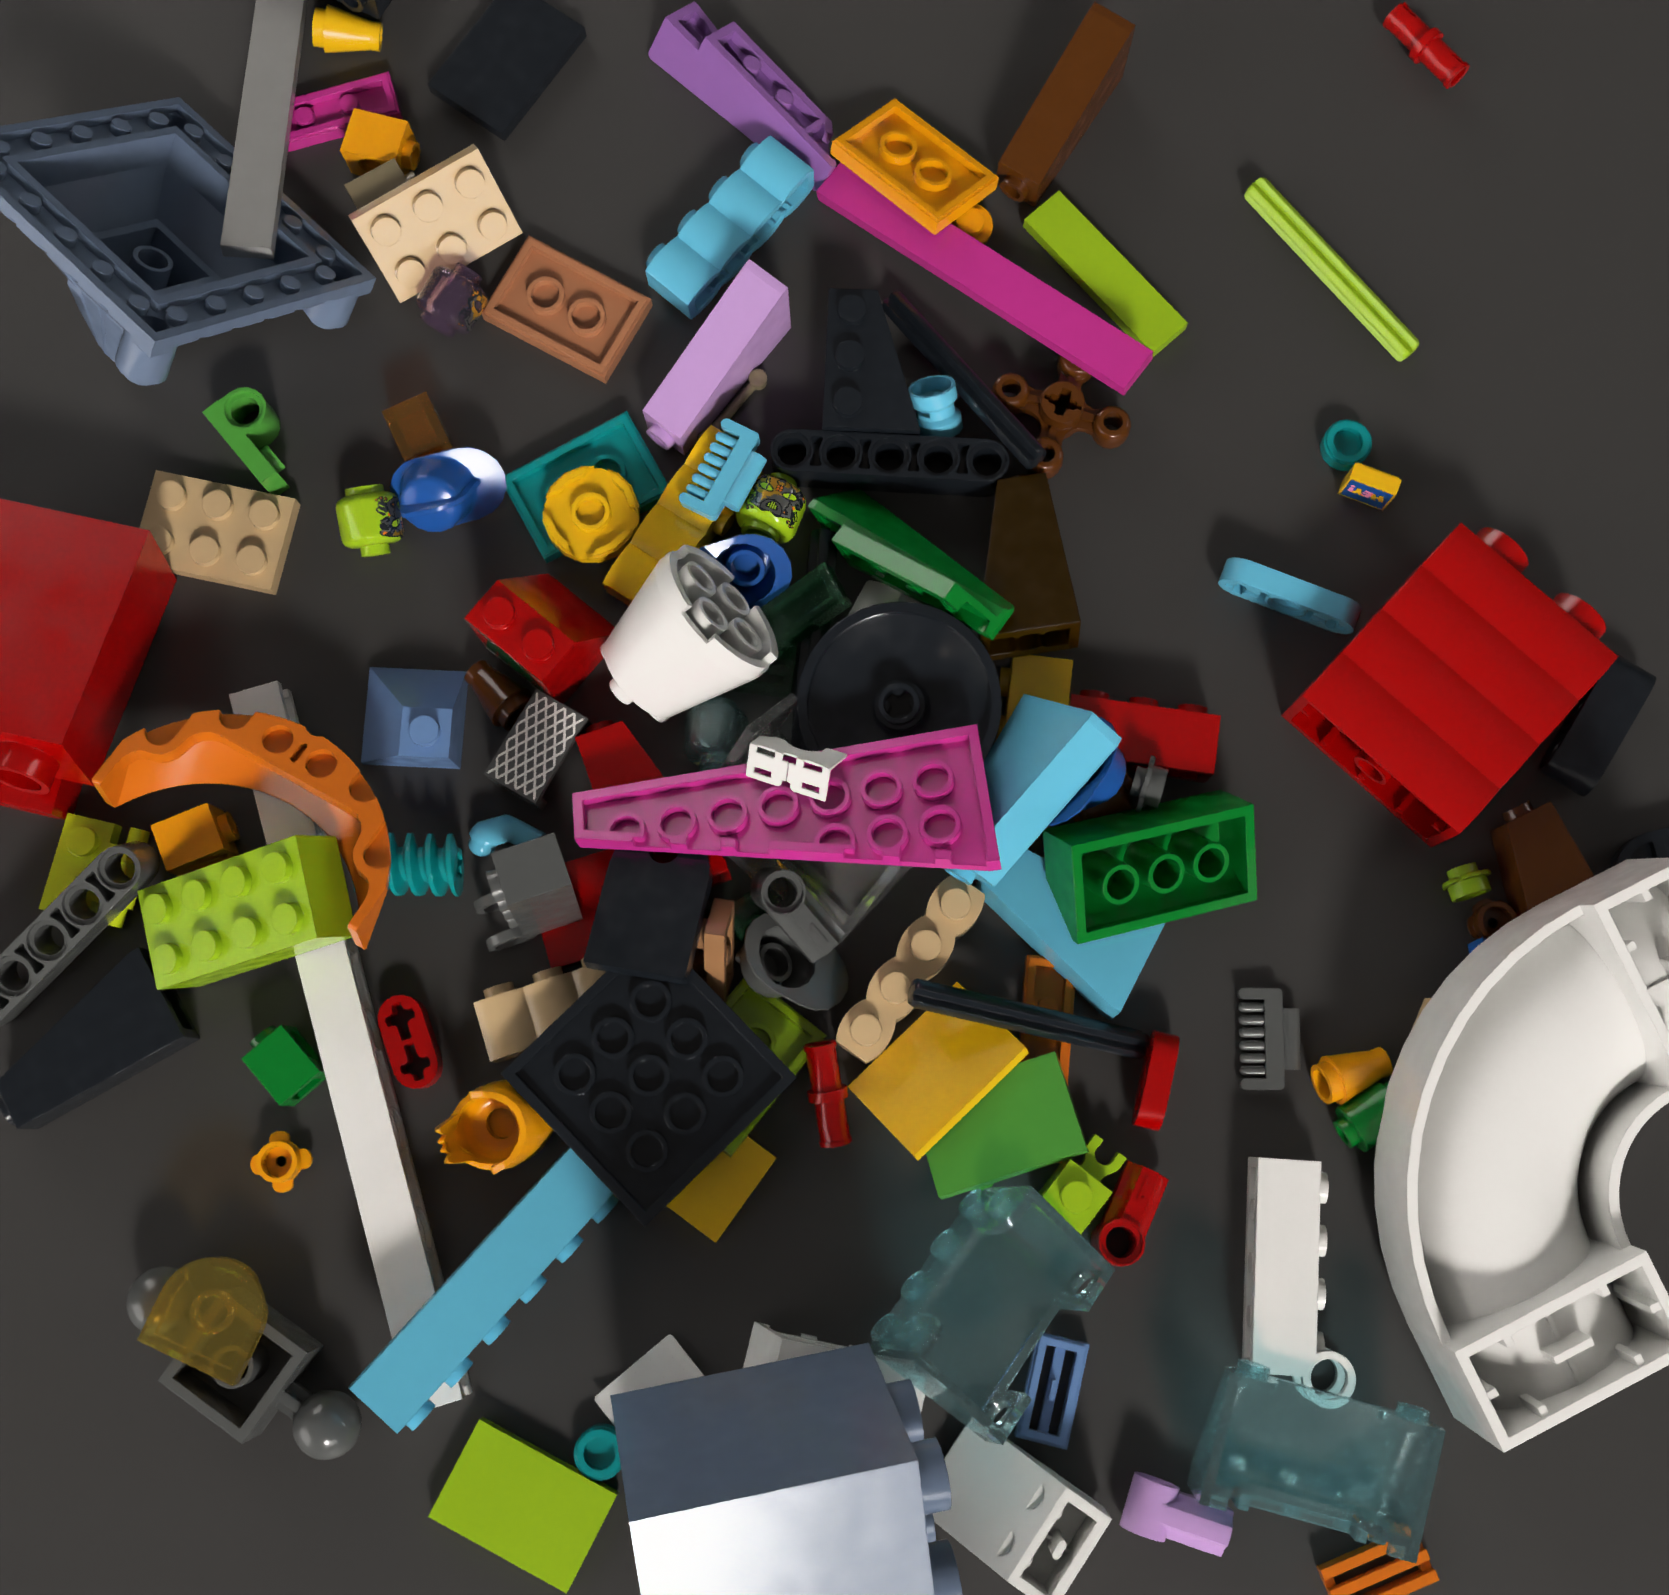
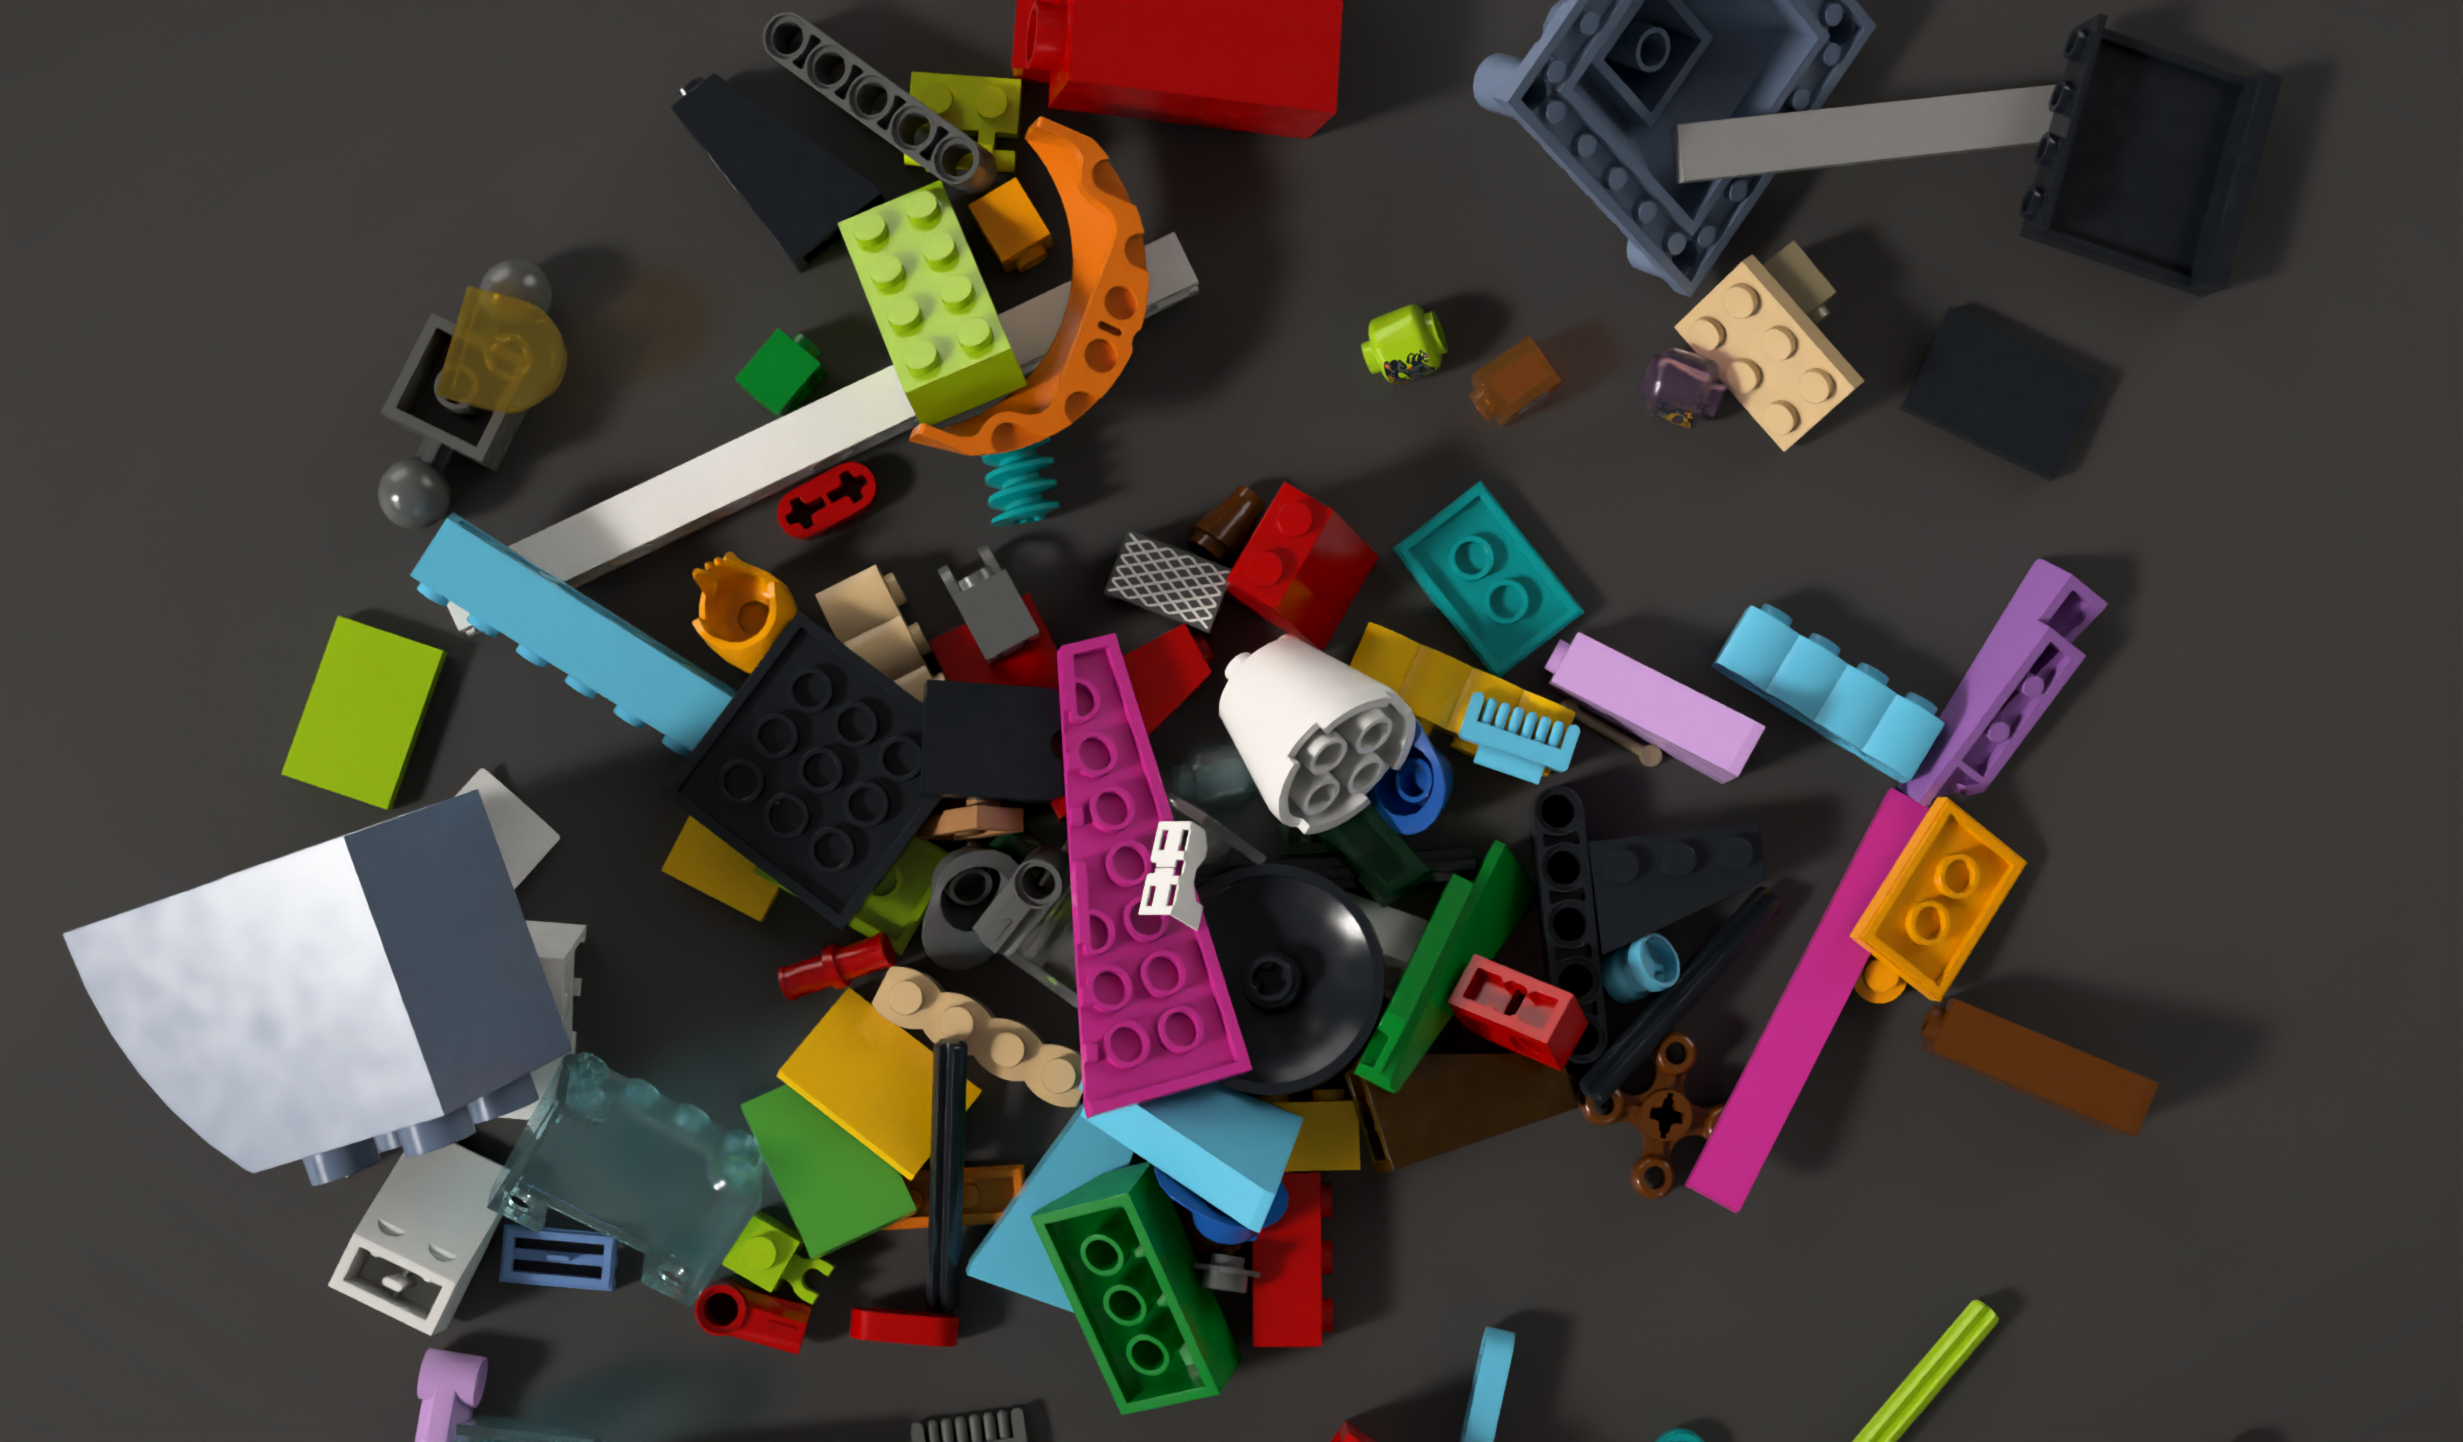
camera: 80 degrees right, 5 degrees up
(220, 530) = (1369, 175): tan plate -> none
(251, 439) = (1453, 207): bright green plate -> none
(266, 1163) = (675, 373): light orange plate -> none
(327, 112) = (1905, 217): dark pink tile -> none
(344, 31) = (1999, 195): yellow cone -> none
(376, 139) = (1860, 268): light orange brick -> none
(414, 718) = (1188, 437): medium blue slope -> none
(448, 488) = (1453, 426): blue piece -> none
(499, 830) = (1075, 559): medium azure arm -> none
(567, 309) = (1699, 520): nougat tile -> none
(591, 514) = (1450, 594): yellow tile -> none
(597, 1452) = (427, 782): teal tile -> none
(772, 508) = (1488, 800): head -> none
(958, 502) = (1518, 1012): none -> red brick
(1104, 273) = (1846, 1144): lime tile -> none

